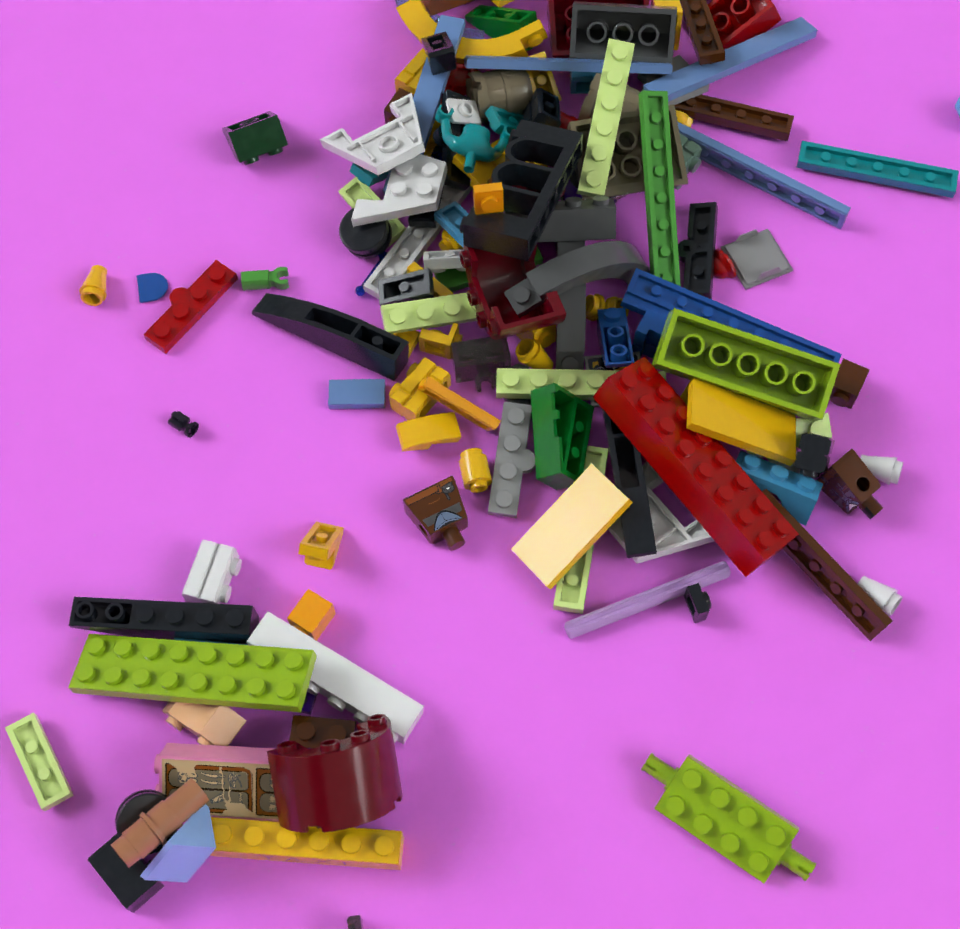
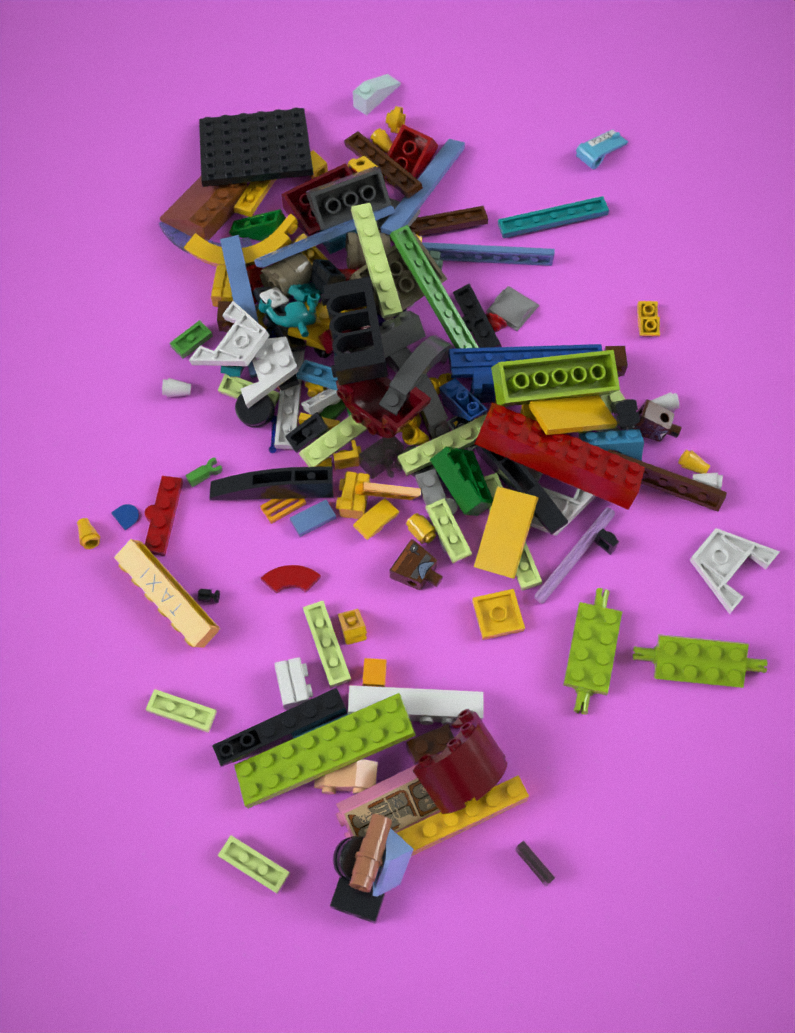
camera: 30 degrees left, 0 degrees up
(71, 539) = (181, 710): none -> yellowish green plate
(136, 397) = (167, 594): none -> yellow brick
(255, 137) = (136, 379): dark green slope -> none
(279, 550) = (327, 644): none -> yellowish green plate
(288, 449) = (290, 576): none -> red tile
(291, 166) = (175, 388): none -> white cone
(327, 371) = (270, 503): none -> light orange tile
(349, 117) = (191, 339): none -> bright green plate
(439, 53) = (237, 263): black slope -> none
(488, 198) = (343, 346): light orange plate -> none
(503, 488) = (448, 530): none -> yellowish green tile
(505, 622) = (498, 614): none -> yellow plate
(594, 728) = (592, 650): none -> lime plate
(837, 702) = (720, 559): none -> white wing
(873, 561) = (691, 461): none -> yellow cone
(926, 351) = (648, 318): none -> yellow slope

